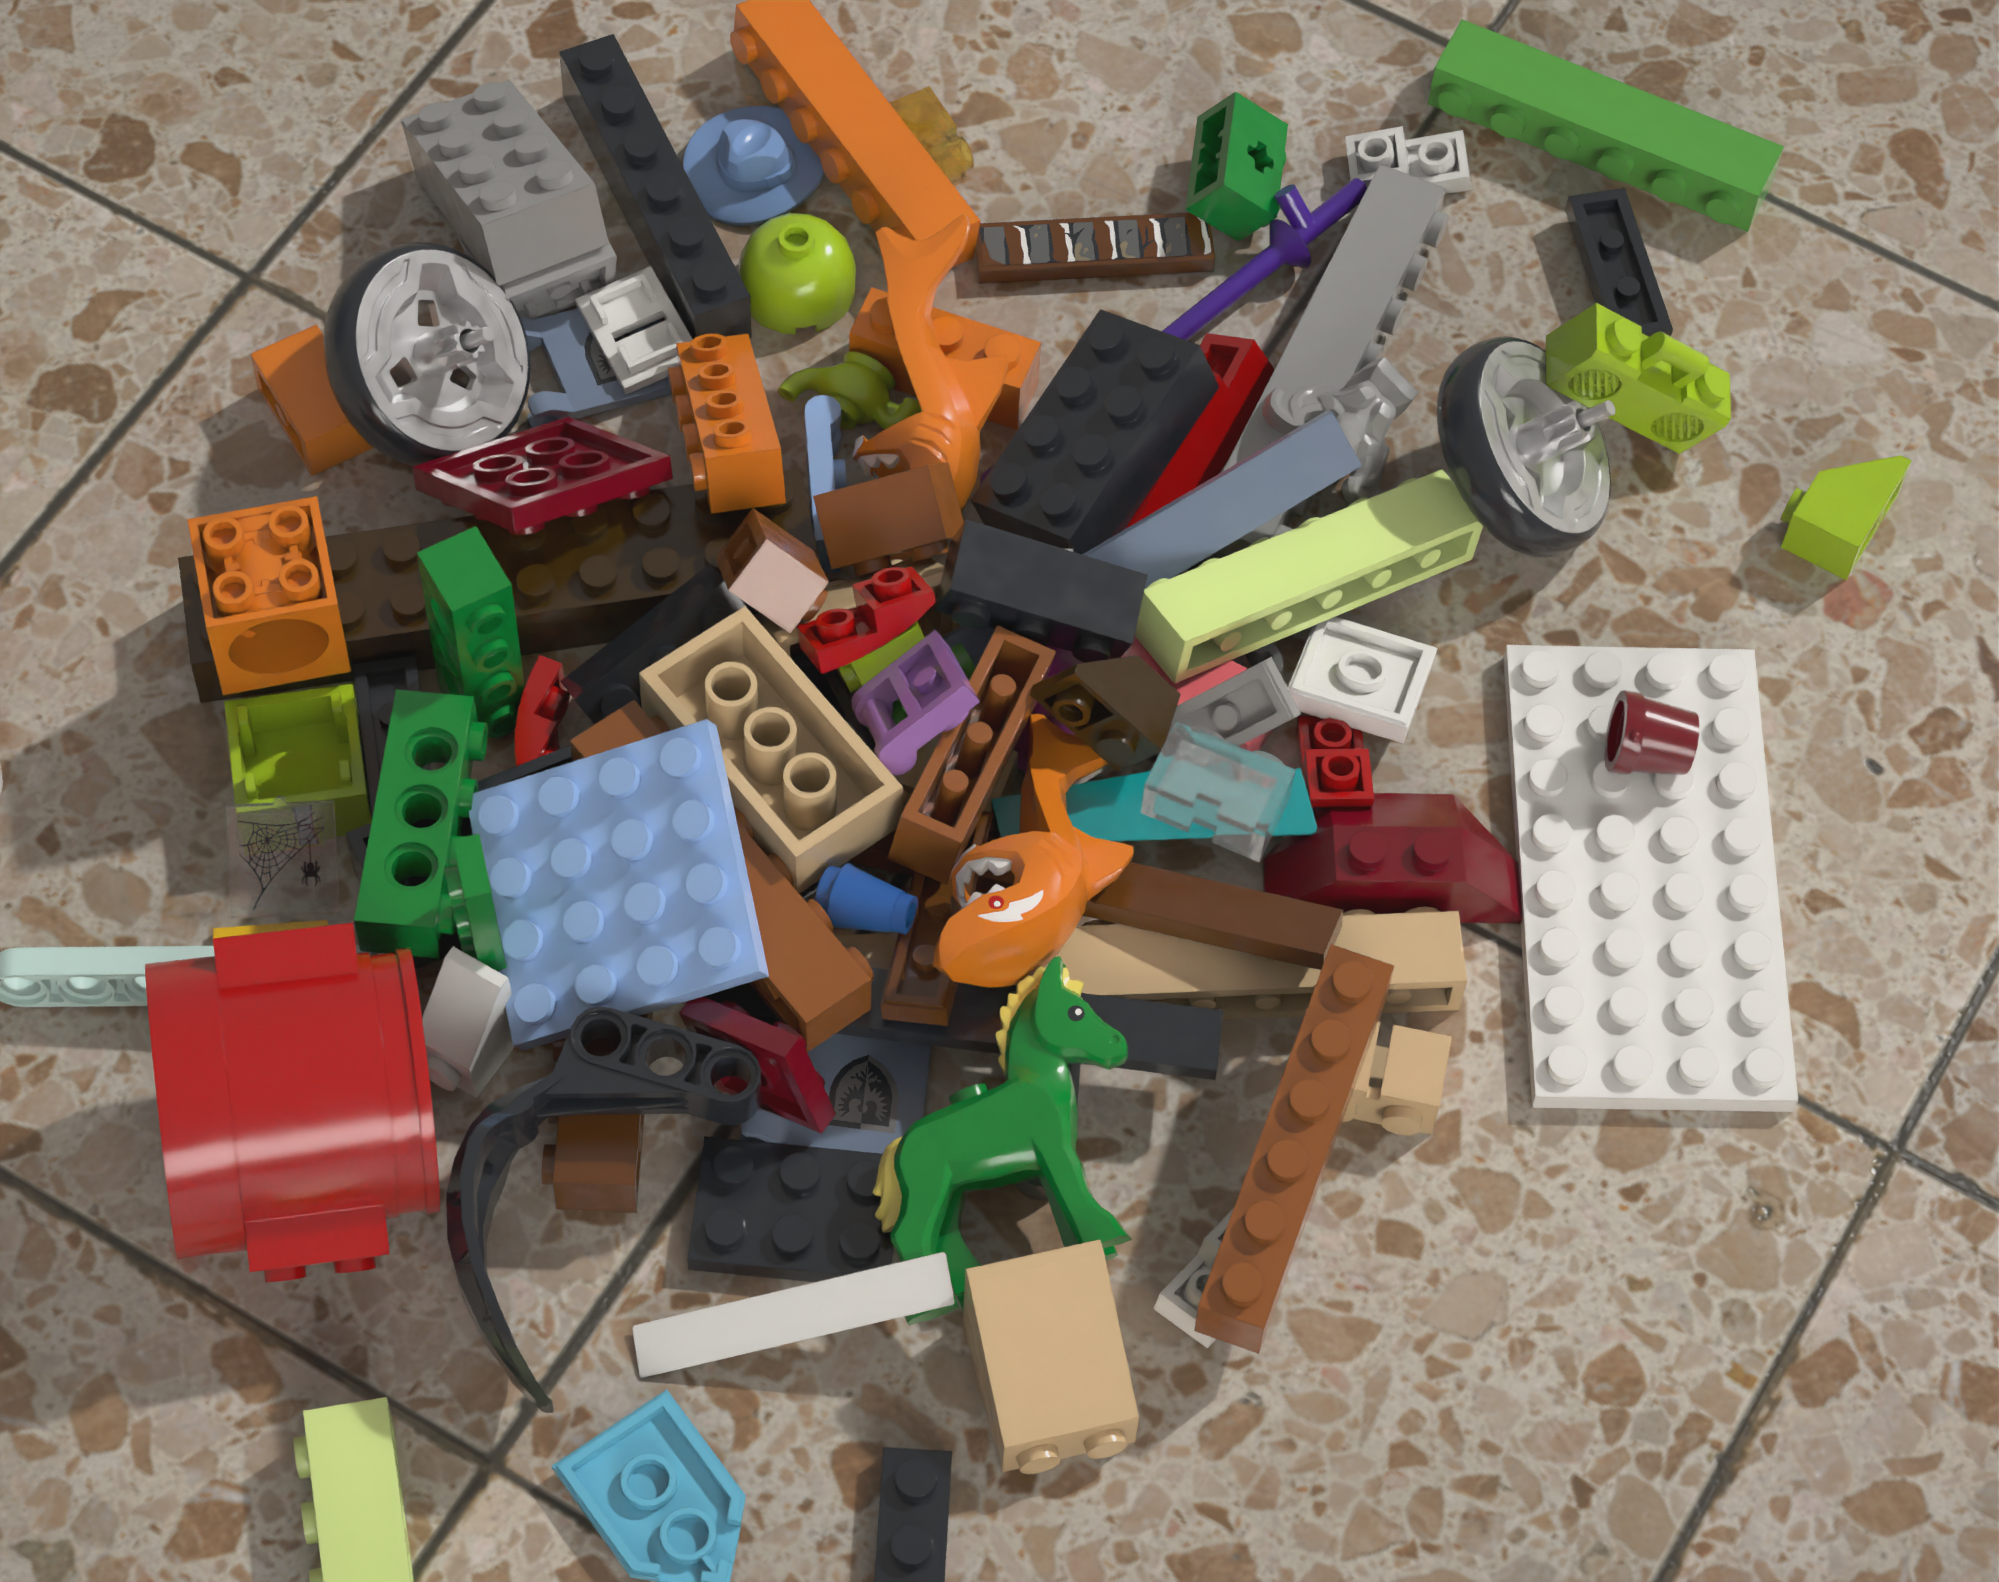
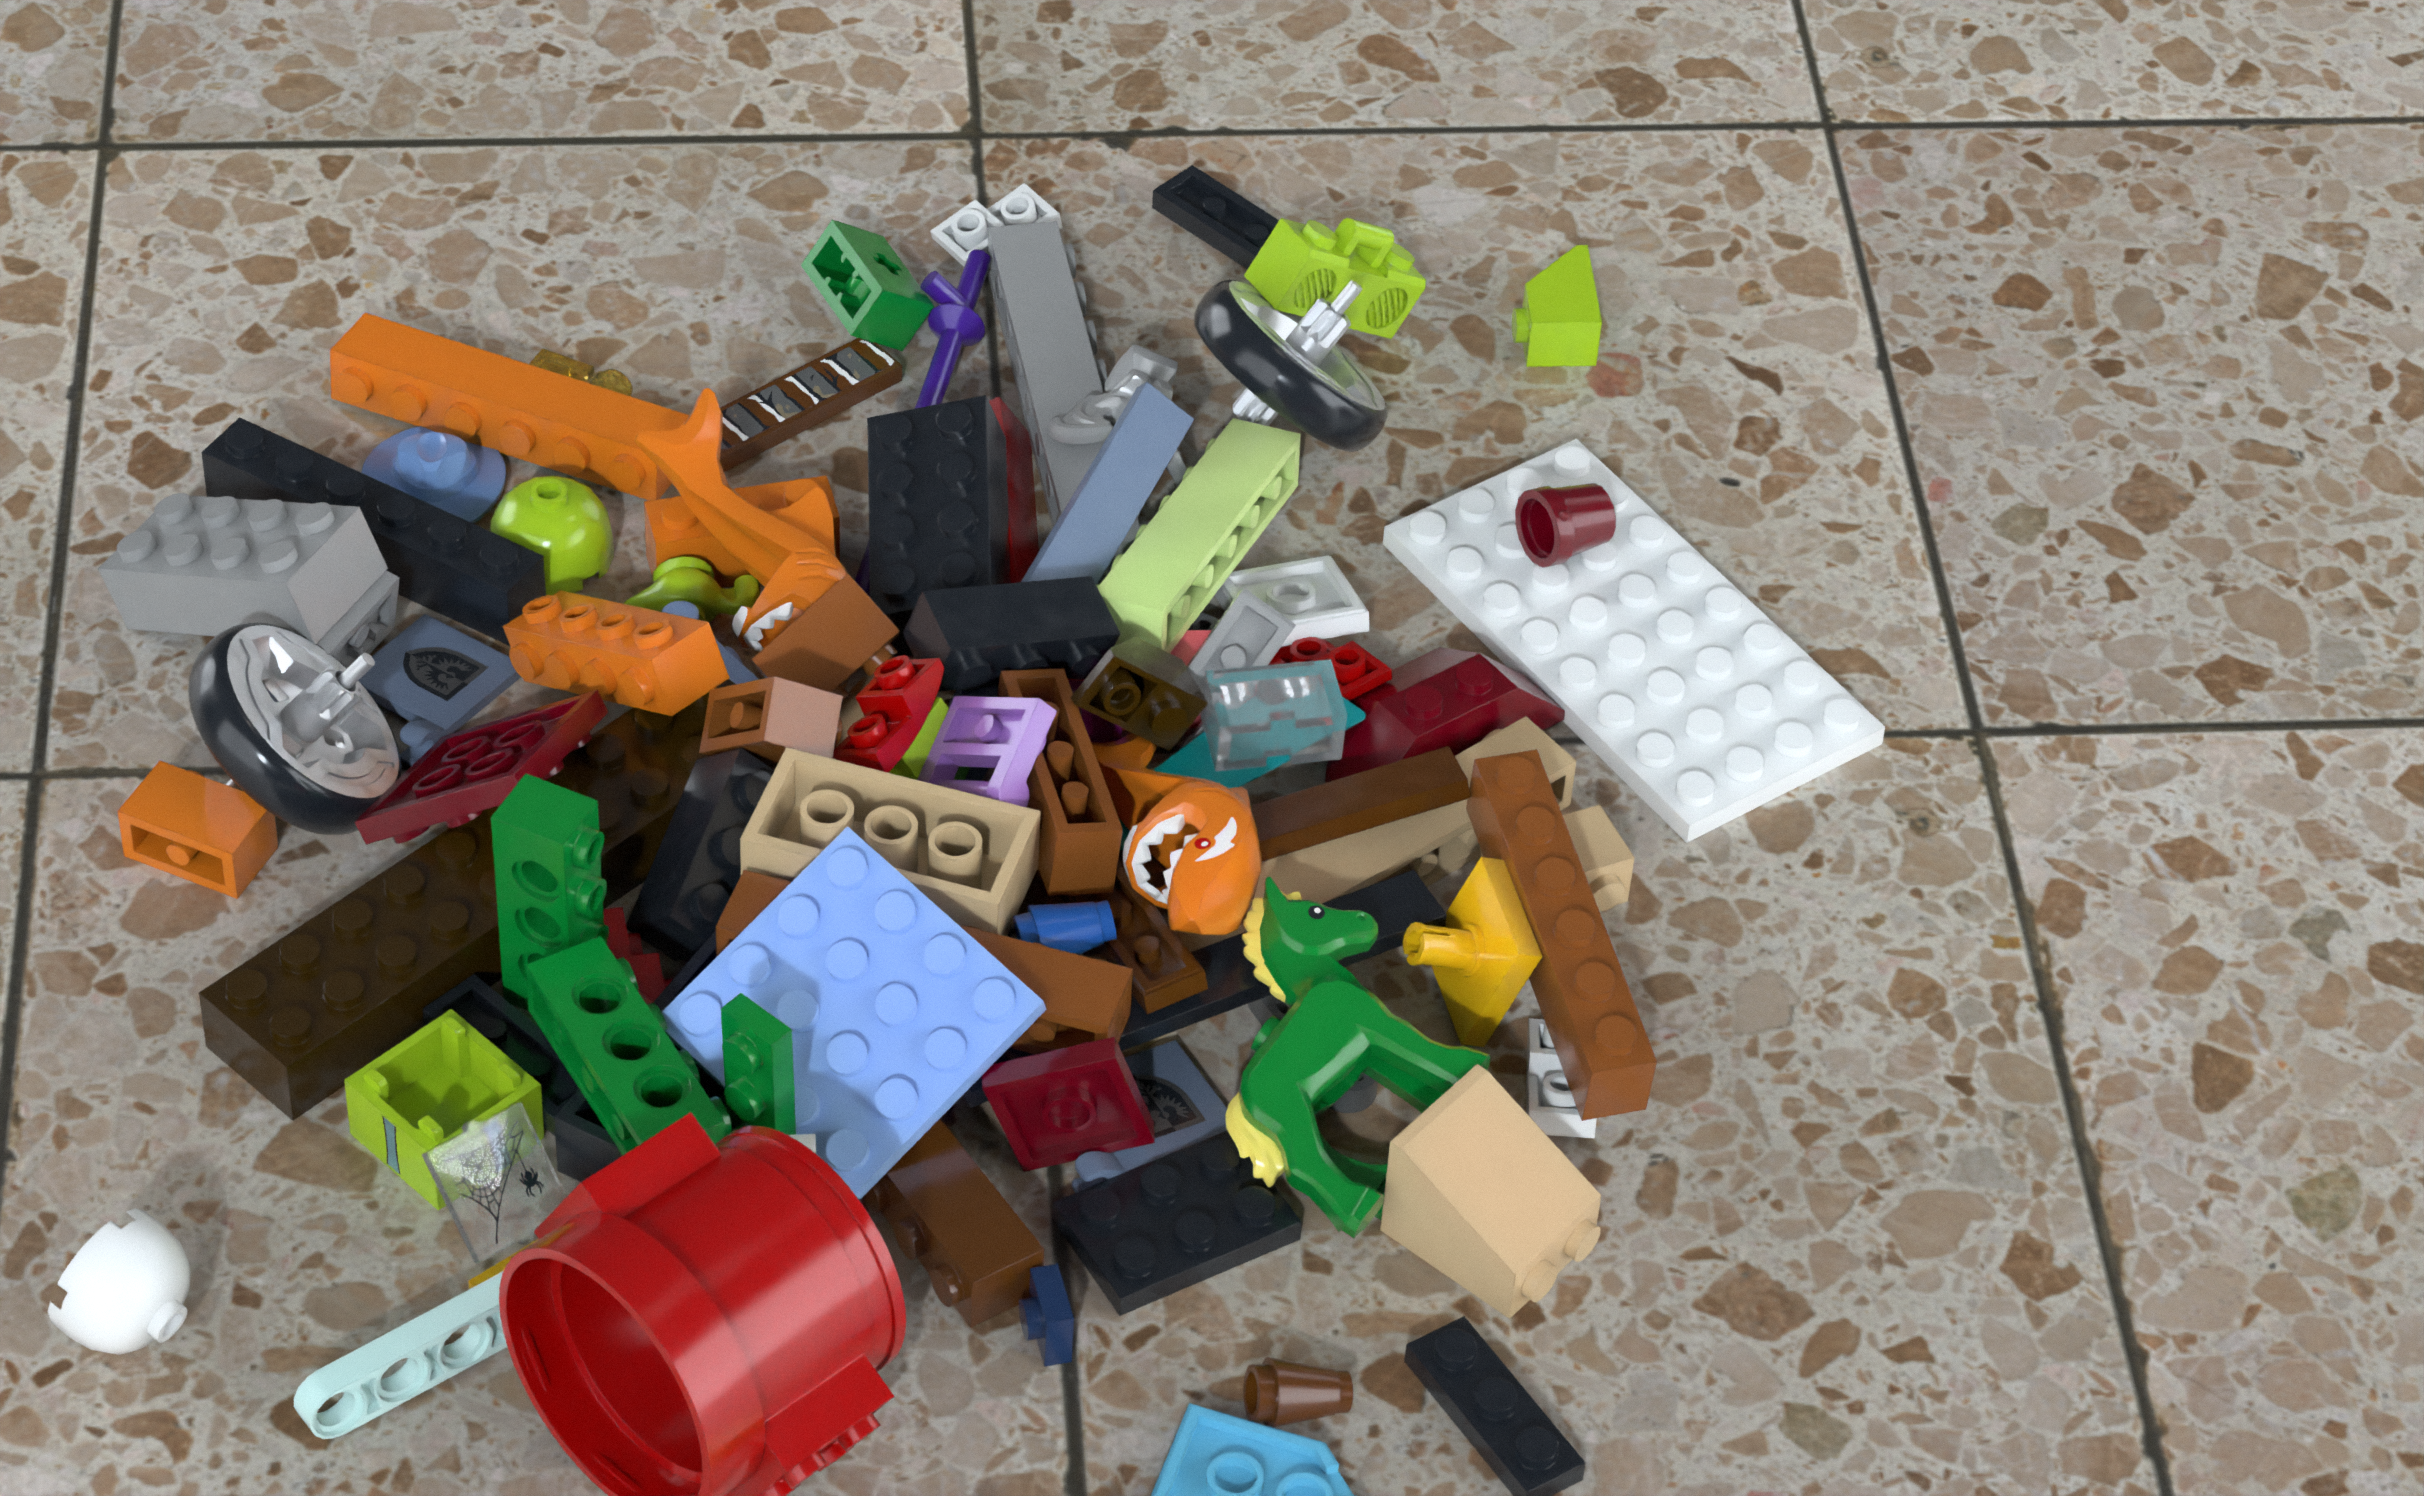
camera: 35 degrees left, 15 degrees down
(268, 595) = (344, 951): orange brick -> none
(579, 1087) = (959, 1353): black piece -> none
(614, 1239) = (1048, 1315): none -> dark blue plate
(626, 307) = (426, 625): white piece -> none
(756, 1435) = (1294, 1392): none -> reddish brown cone
(793, 1315) = (1251, 1284): white sticker -> none
(1224, 1116) = (1480, 952): none -> yellow tile
(1604, 125) = (1134, 130): bright green brick -> none

